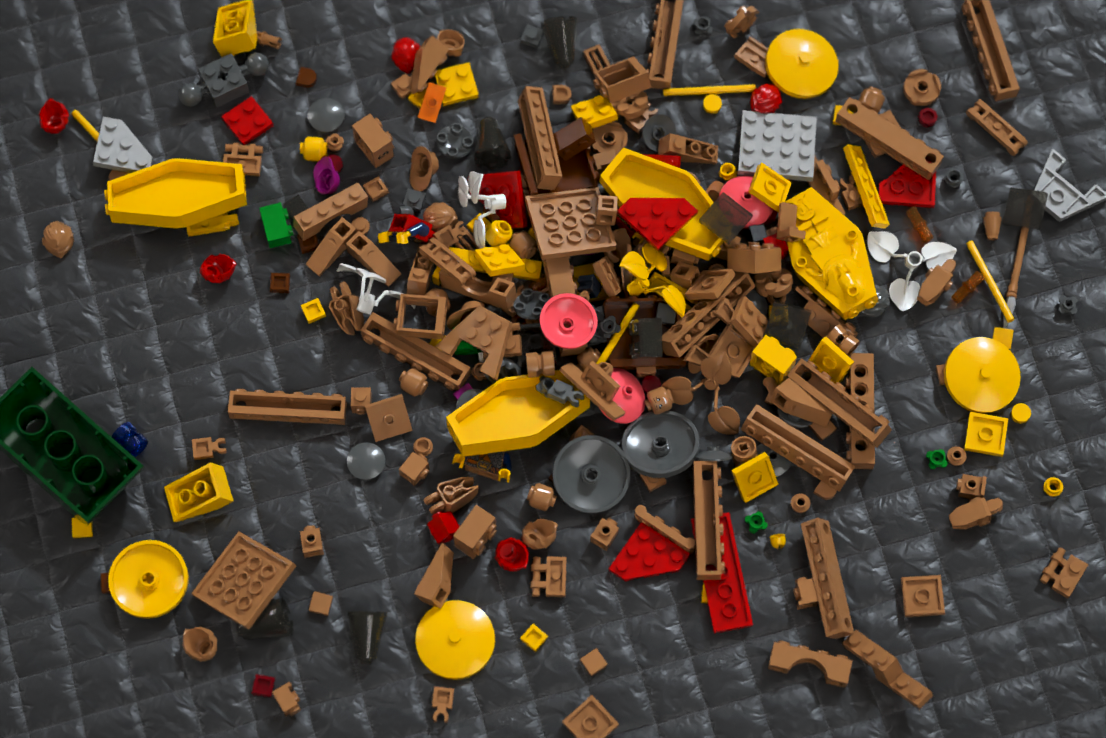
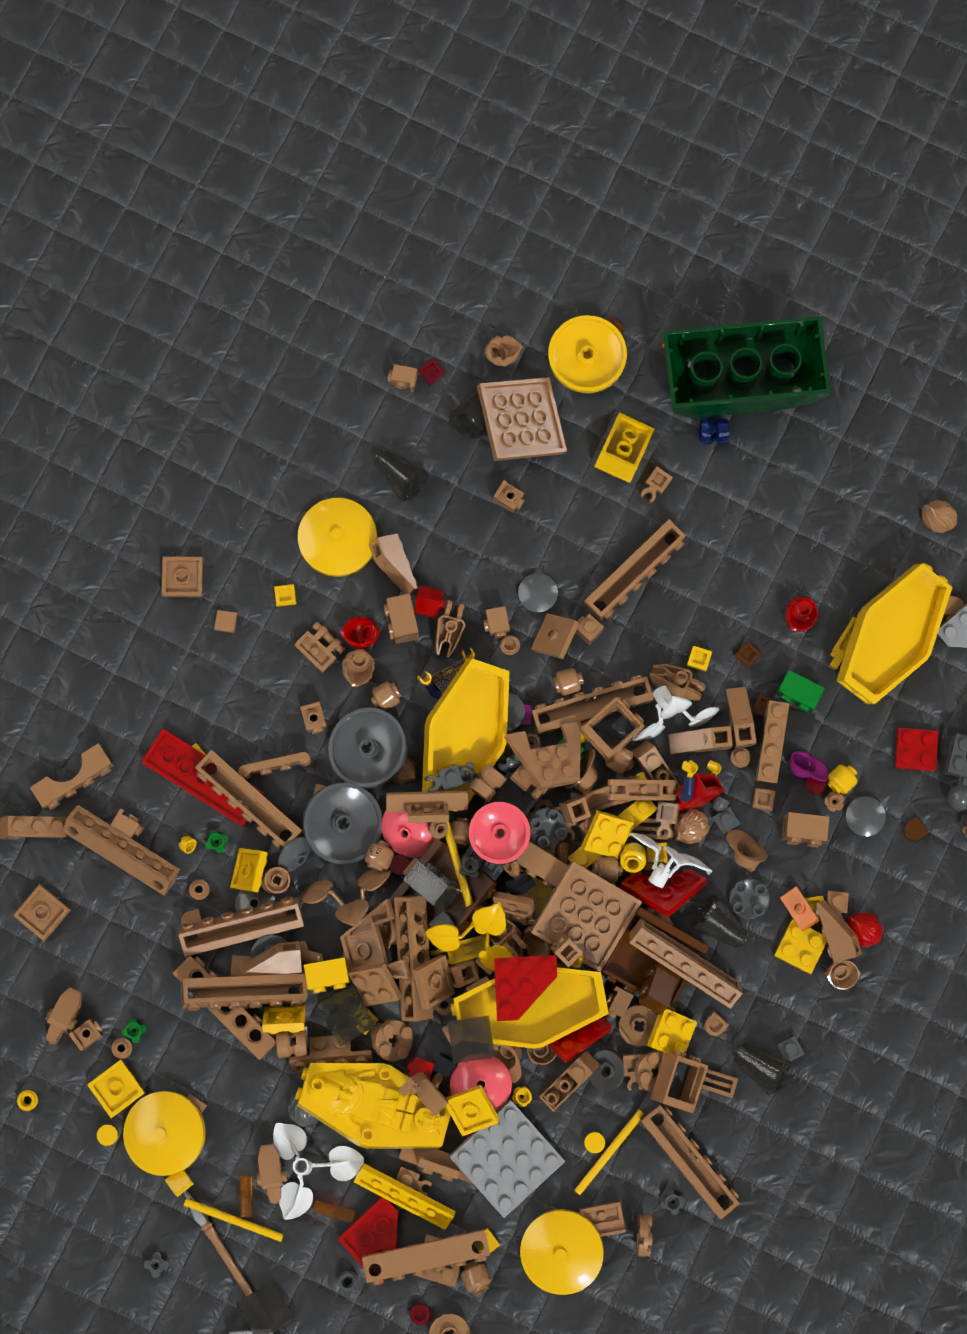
camera: 130 degrees right, 10 degrees up
(250, 162) = (876, 713): medium nougat plate -> none
(321, 603) = (455, 464): medium nougat tile -> none
(442, 700) = (298, 486): medium nougat plate -> none
(648, 555) = (268, 734): red plate -> none
(754, 258) = (421, 1037): medium nougat brick -> none
(765, 99) = (557, 1190): red hair -> none
(992, 225) = (278, 1271): medium nougat cone -> none

